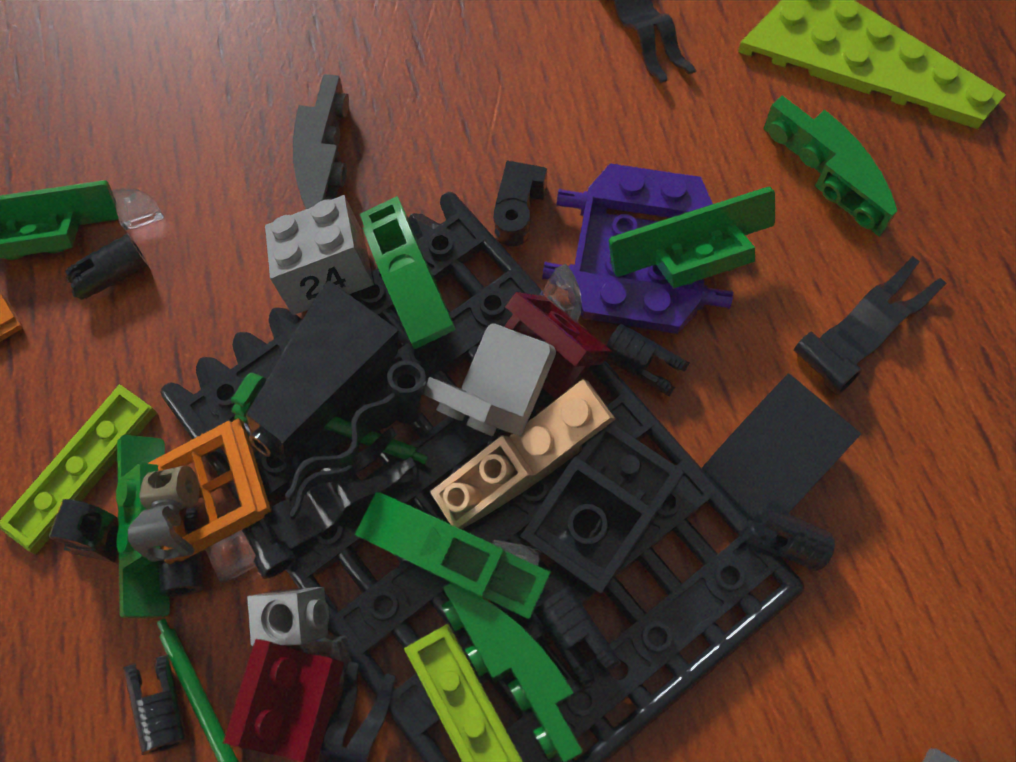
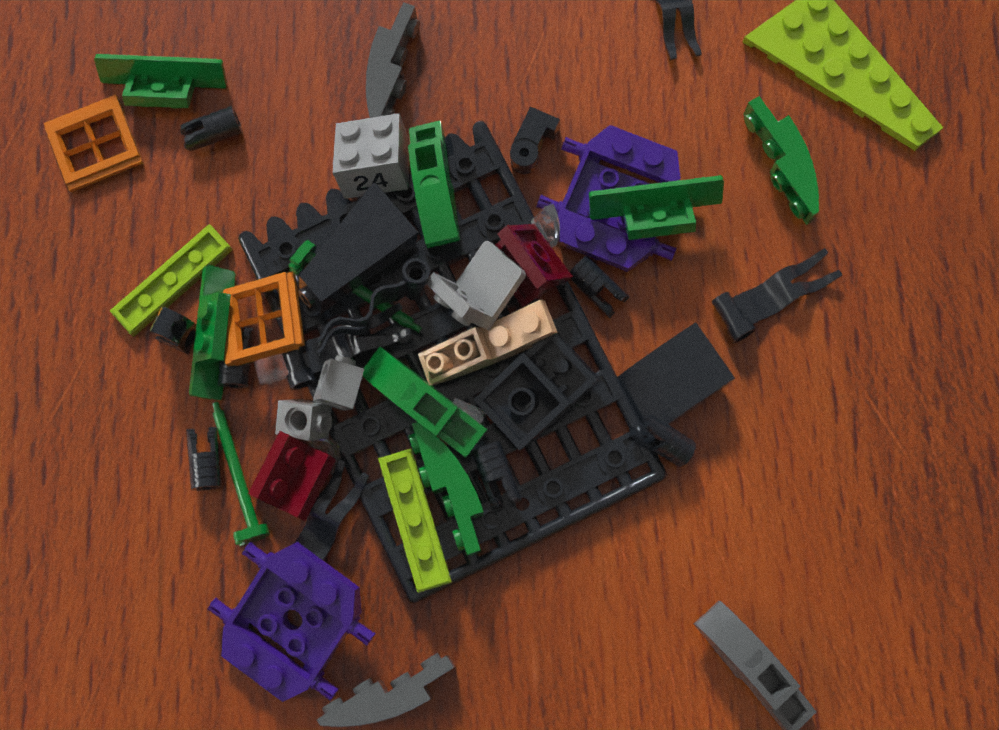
camera: 15 degrees right, 10 degrees up
(135, 208) = (239, 82): clear tile -> none
(164, 496) = (233, 319): leg -> none
(328, 553) = (339, 383): none -> light grey brick

